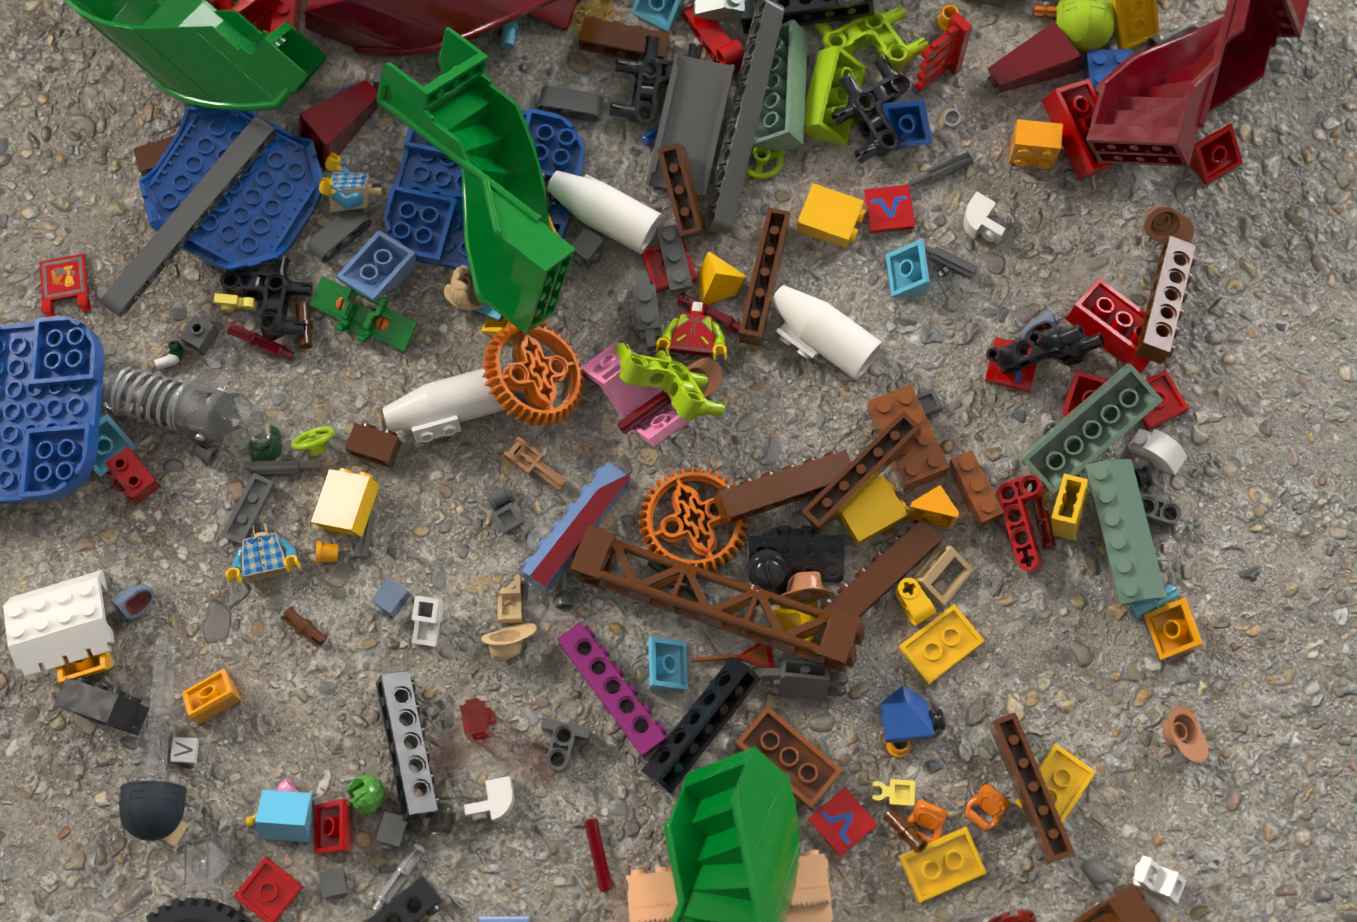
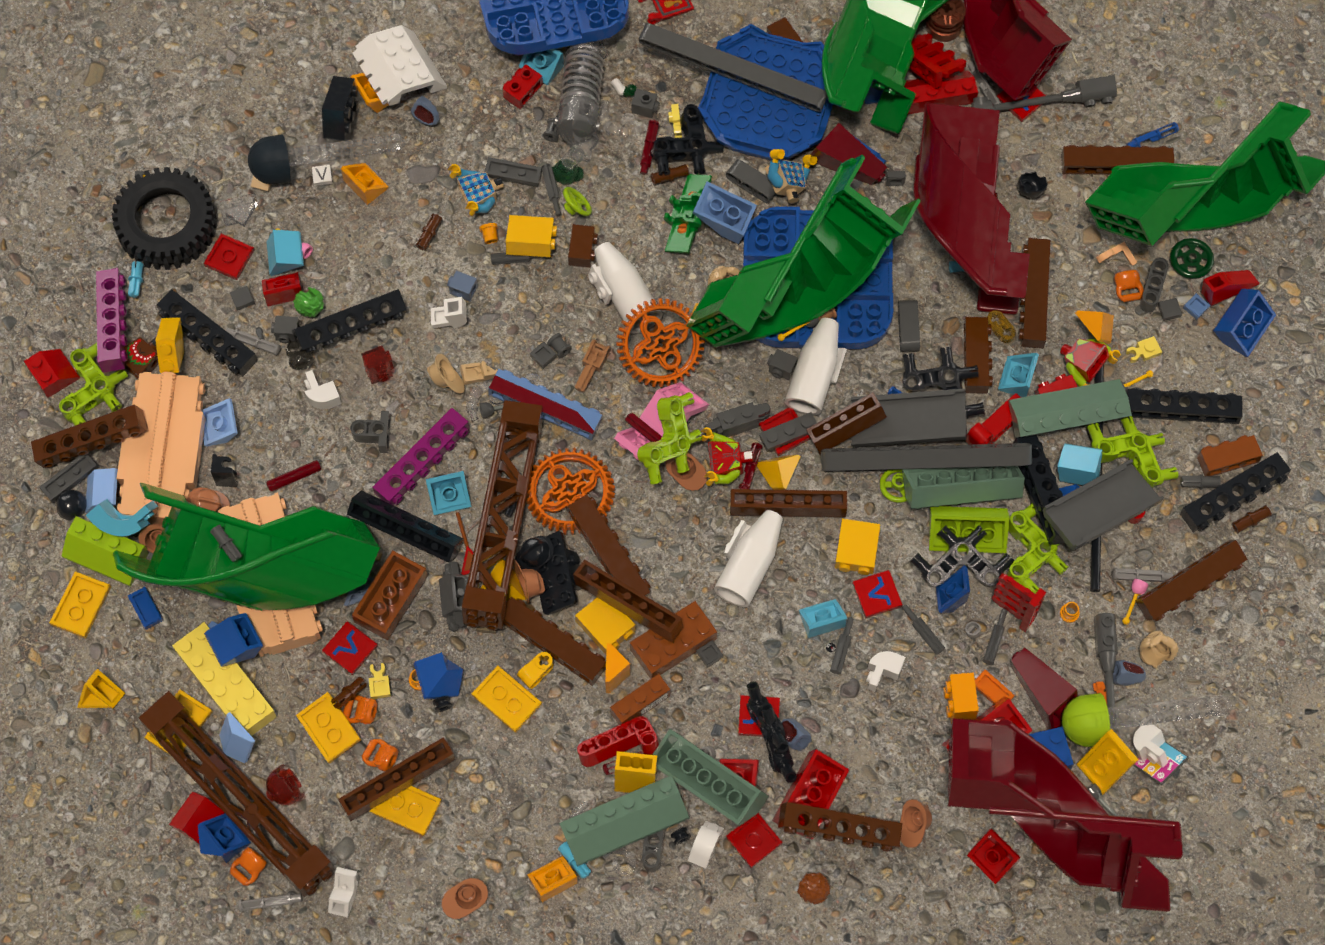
camera: 75 degrees right, 5 degrees down
(935, 565) = (568, 680): tan tile -> none
(966, 99) = (995, 639): none -> dark grey axle
(1030, 110) = (992, 688): none -> orange tile
(1228, 344) = (814, 888): none -> dark orange piece

